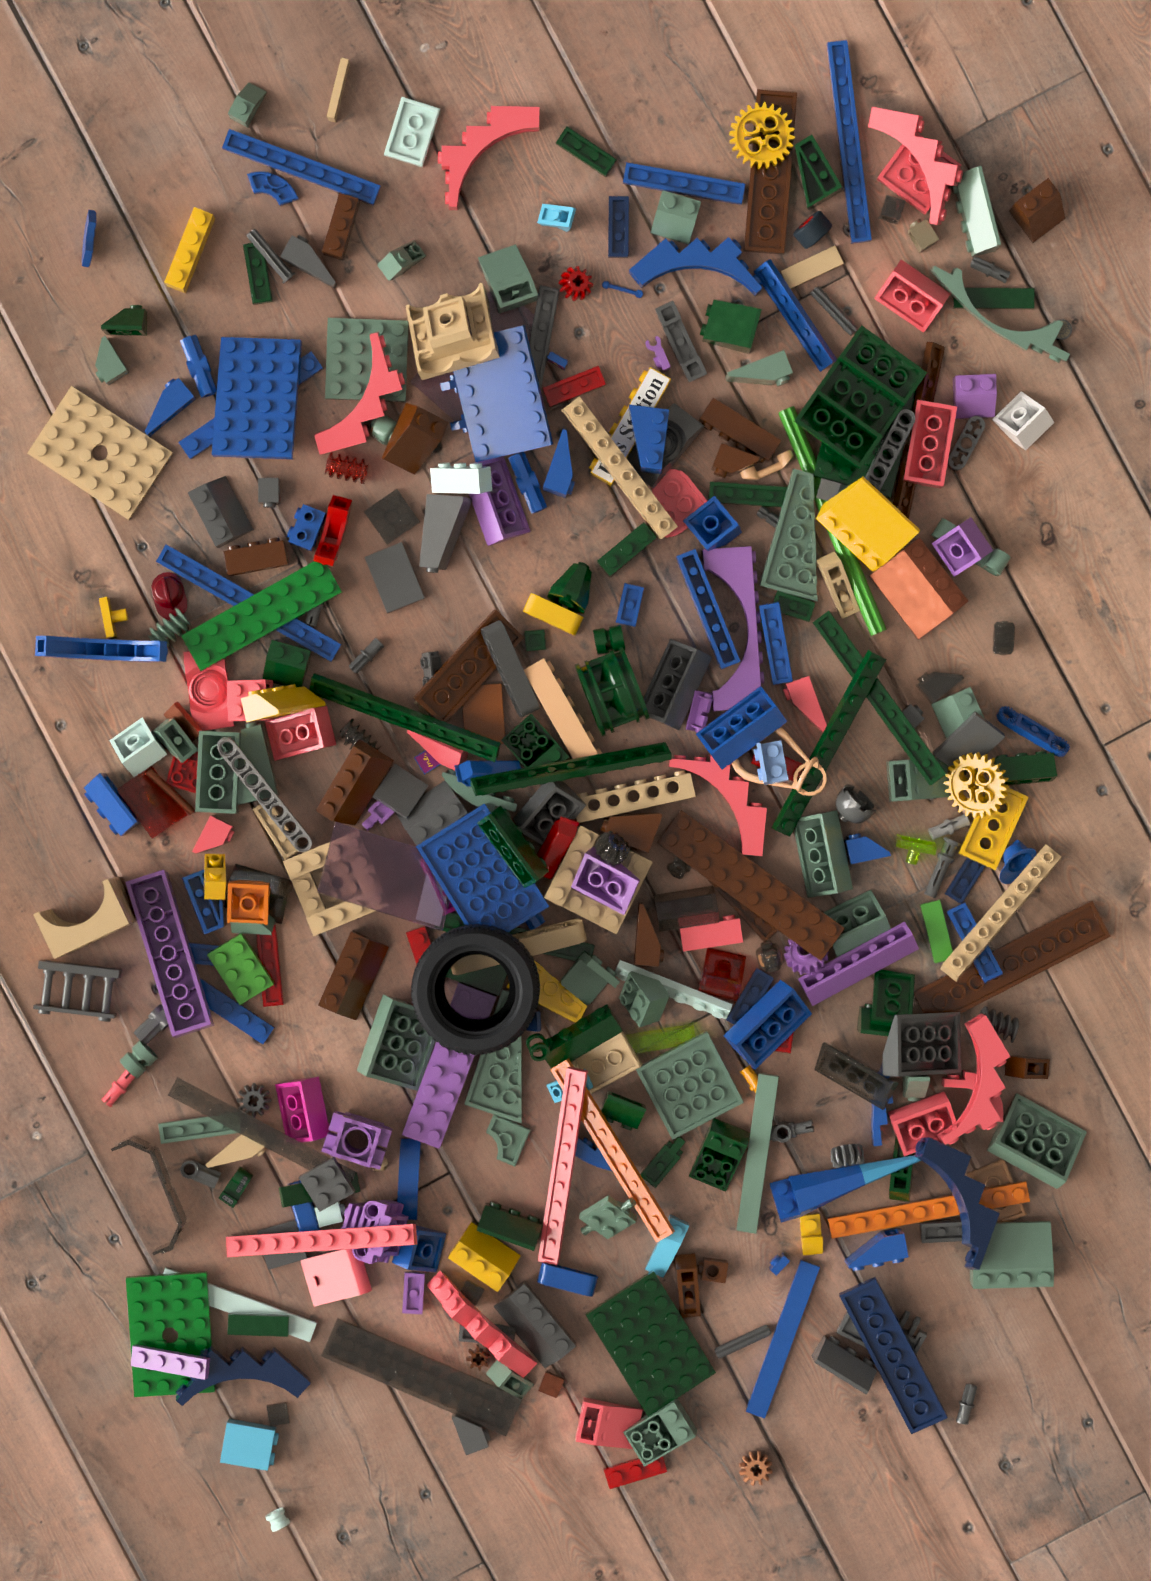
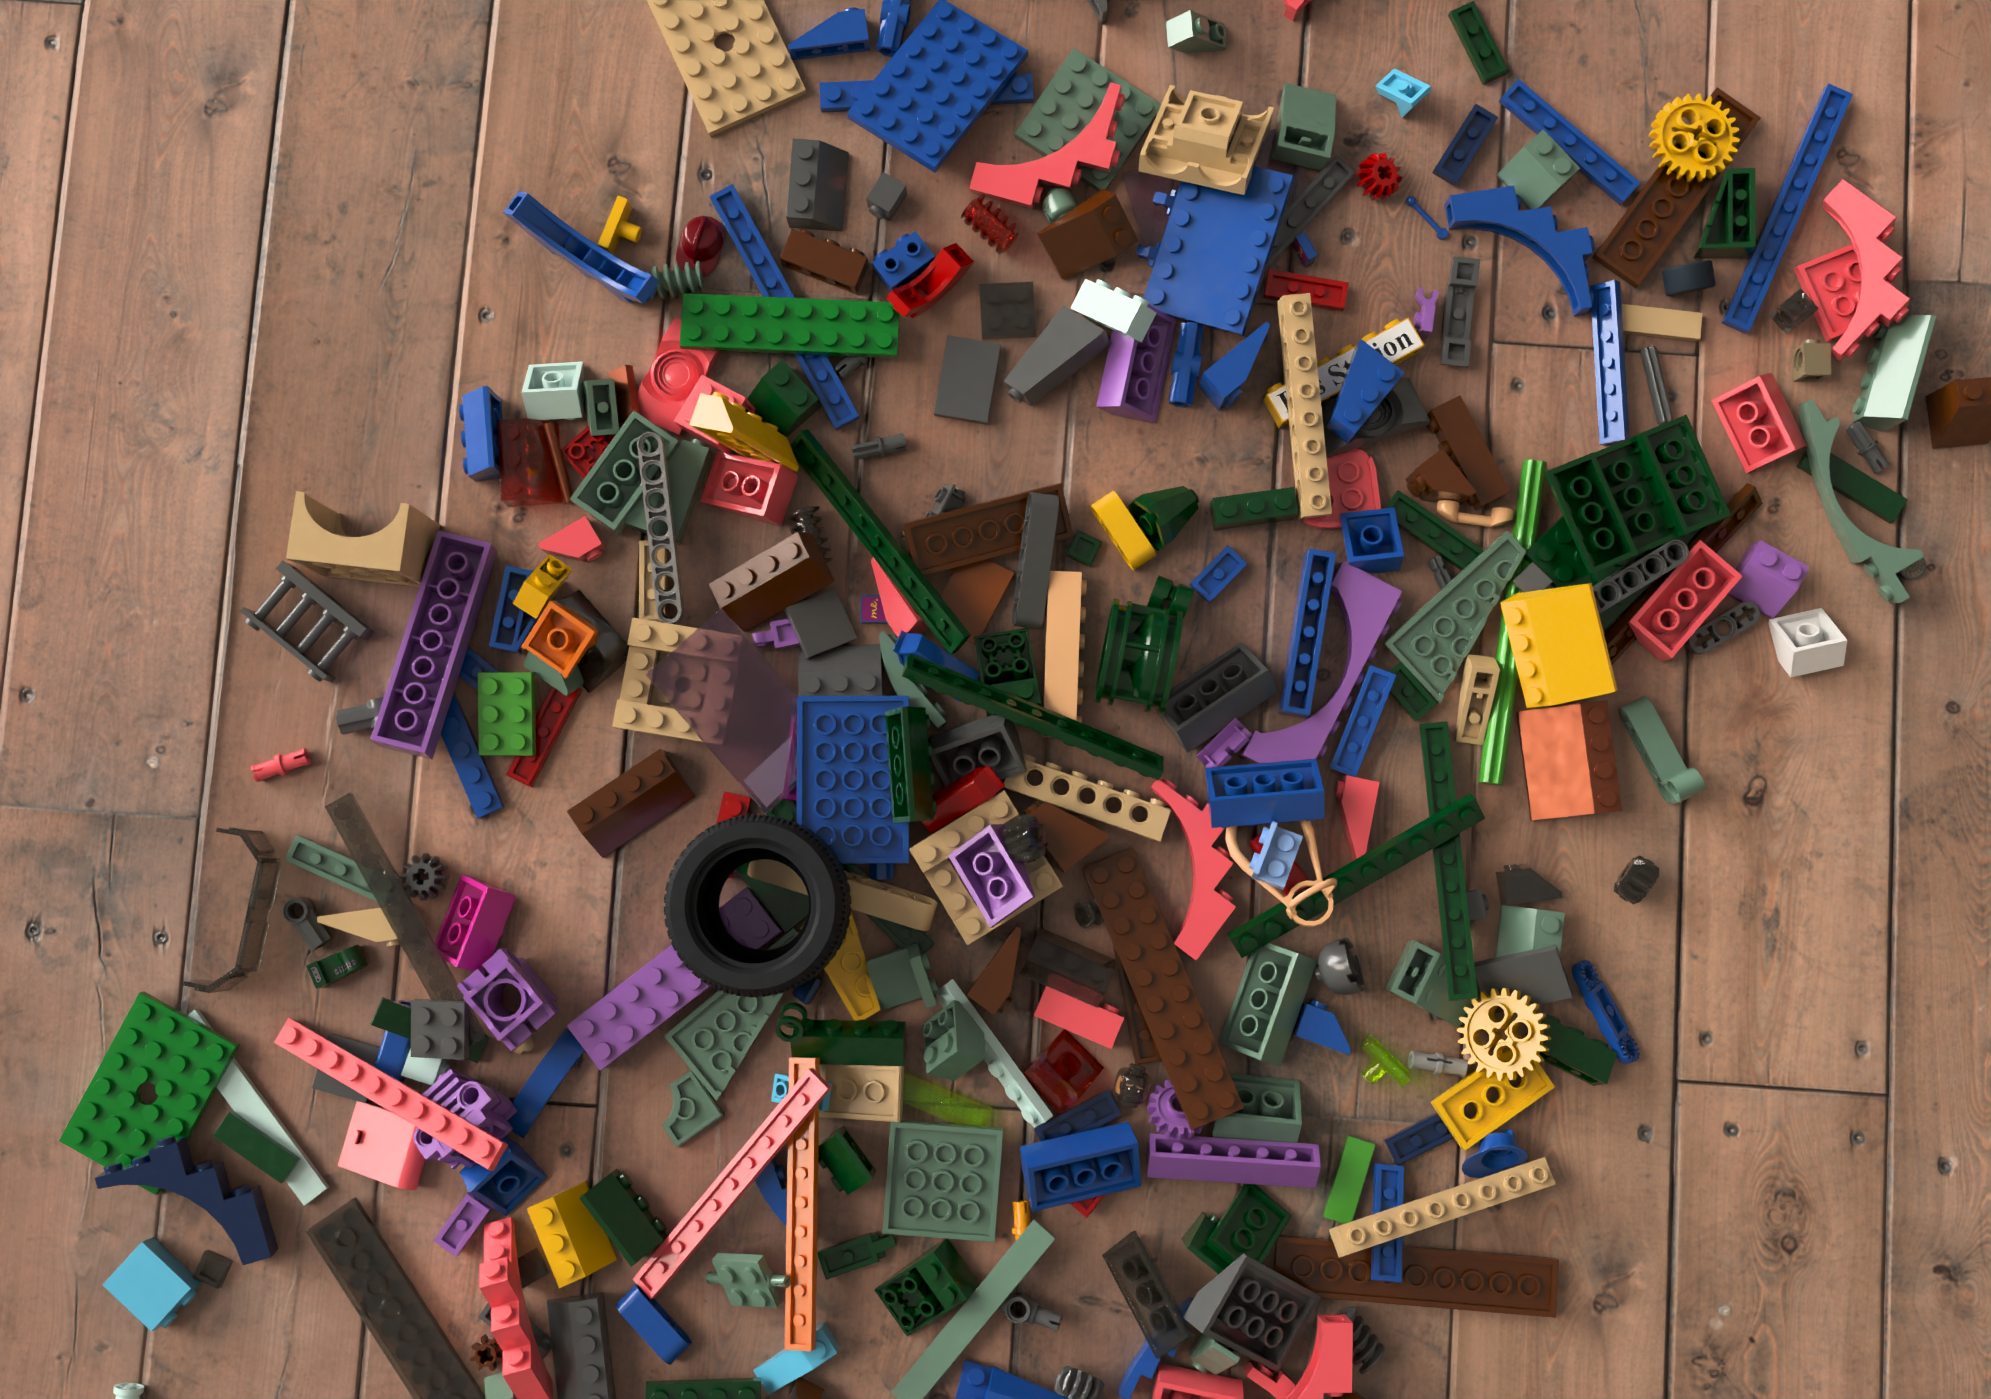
camera: 30 degrees right, 5 degrees down
(137, 1061) = (323, 745): sand green wheel -> none
(170, 1362) = (120, 1126): plate -> none
(396, 1045) = (625, 917): sand green slope -> none
(730, 325) = (1529, 328): dark green slope -> none
(766, 371) = (1535, 401): sand green slope -> none
(932, 890) = (1371, 1126): dark grey pin -> none
(962, 547) = (1652, 742): medium lavender slope -> none

